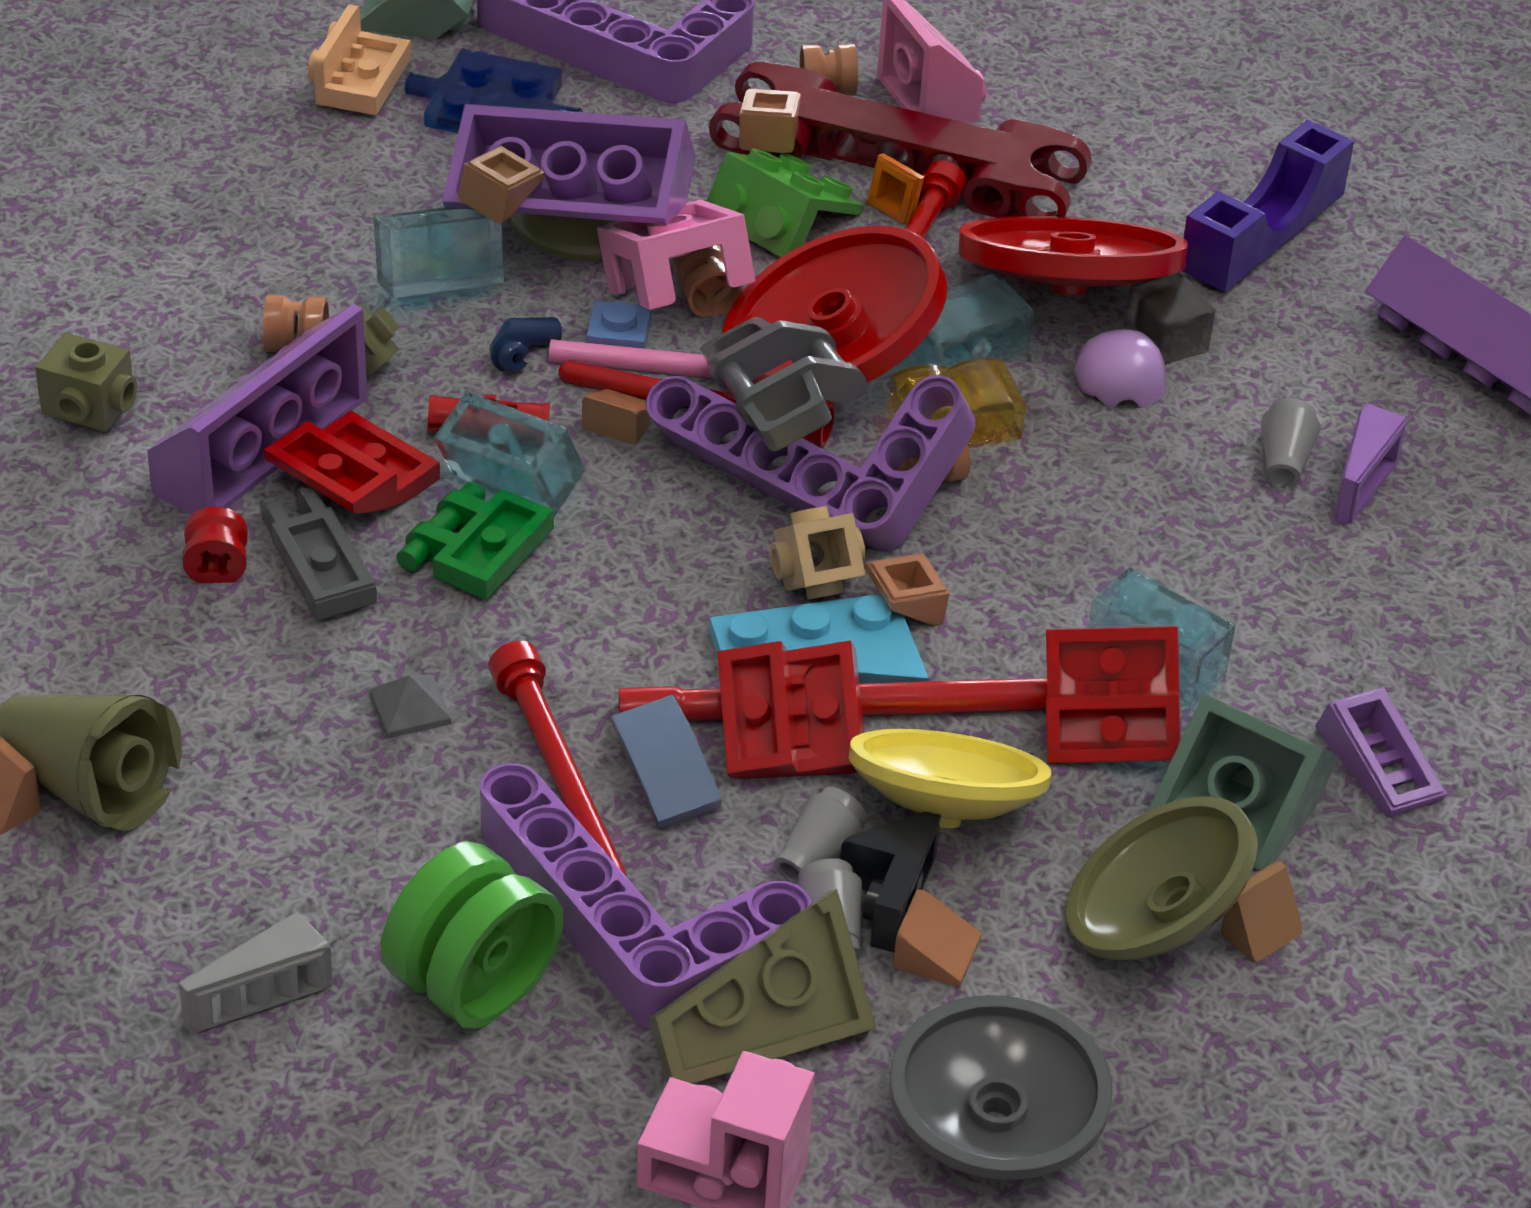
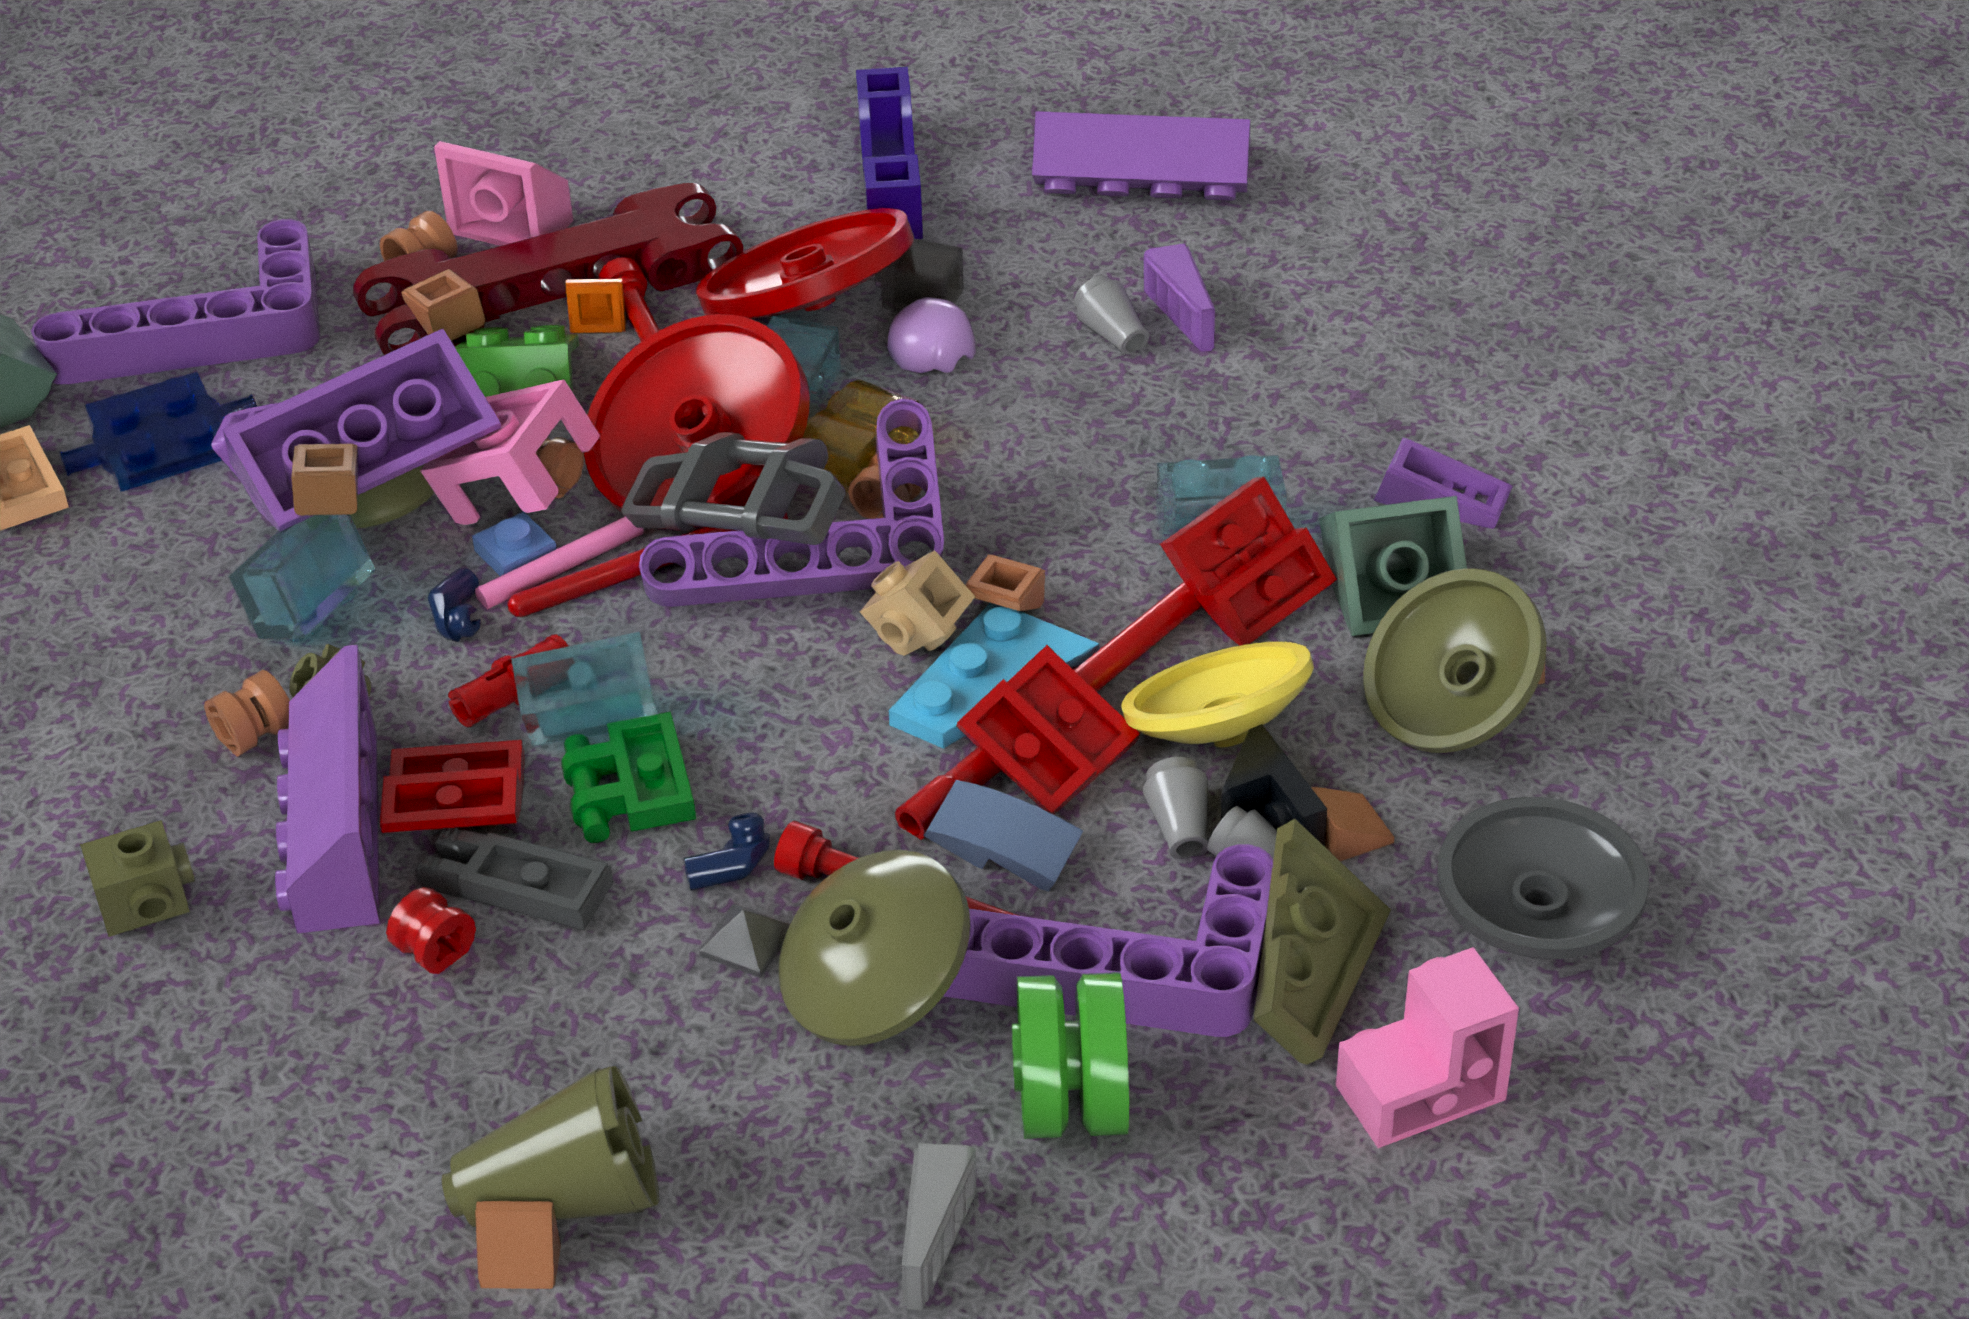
camera: 40 degrees left, 0 degrees up
(457, 763) = (874, 947): none -> olive dish
(467, 645) = (736, 858): none -> dark blue arm
(615, 415) = (607, 611): medium nougat slope -> none

